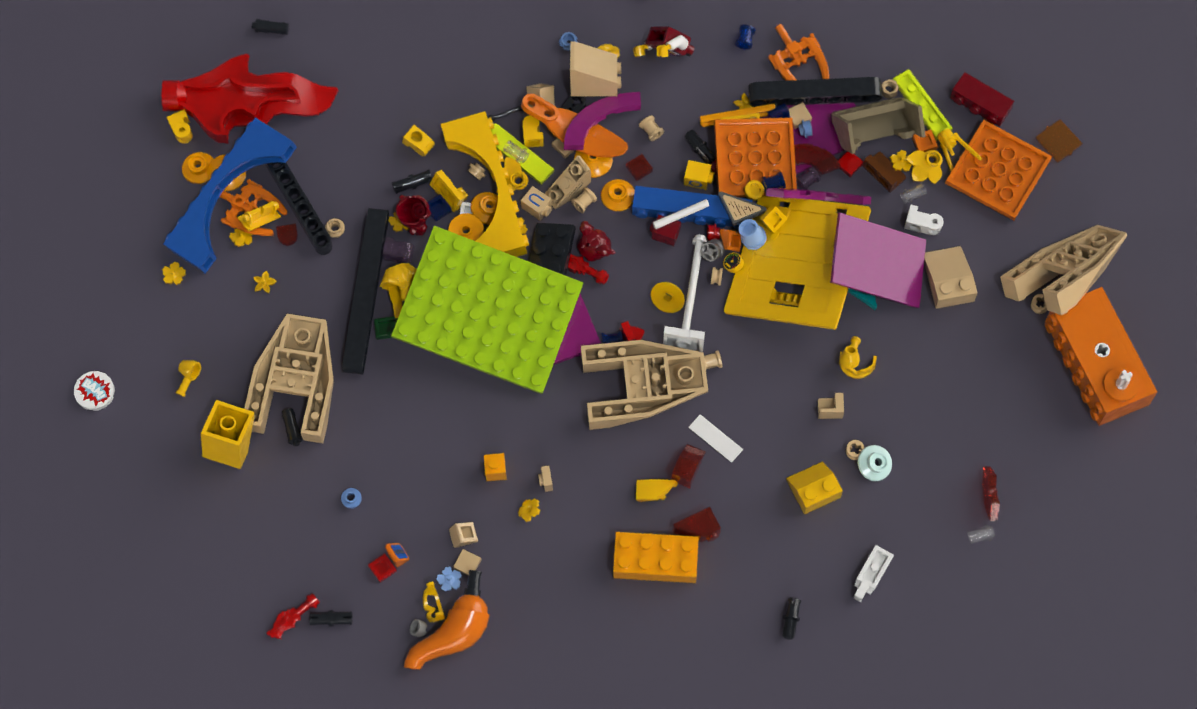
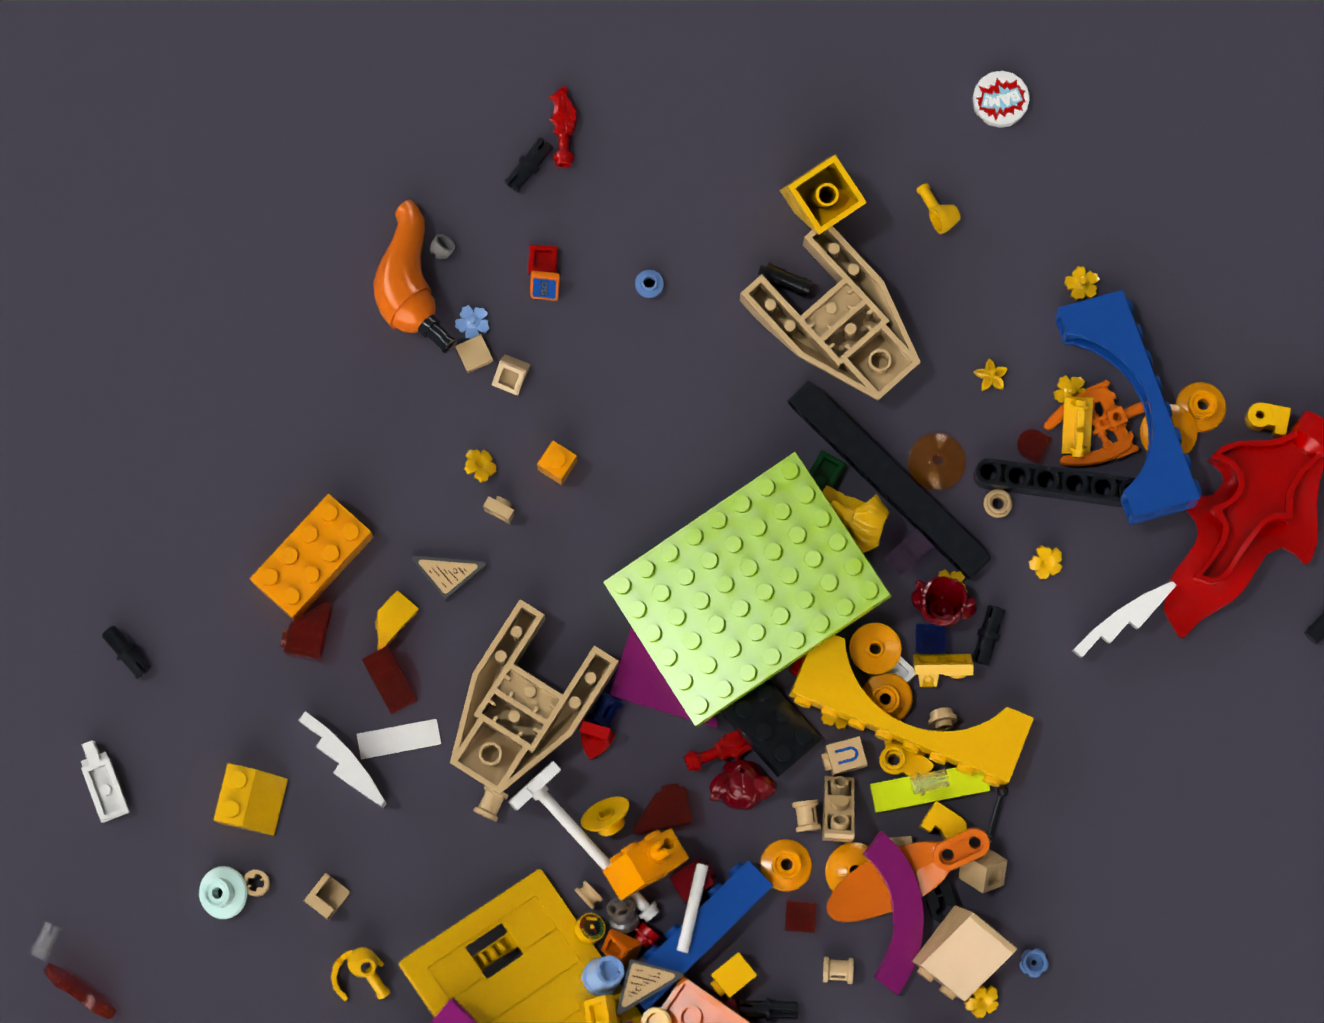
camera: 125 degrees right, 10 degrees up
(335, 284) = (930, 474): none -> clear orange dish
(342, 117) = (1133, 613): none -> white slope
(348, 180) = (1047, 562): none -> yellow plant
(418, 141) = (1035, 679): yellow leg -> none
(430, 590) = (471, 292): yellow helmet -> none
(604, 480) = (447, 574): none -> tile
(640, 270) = (665, 810): none -> clear red slope
(677, 252) = (644, 862): none -> light orange brick
(753, 449) = (349, 767): none -> white slope

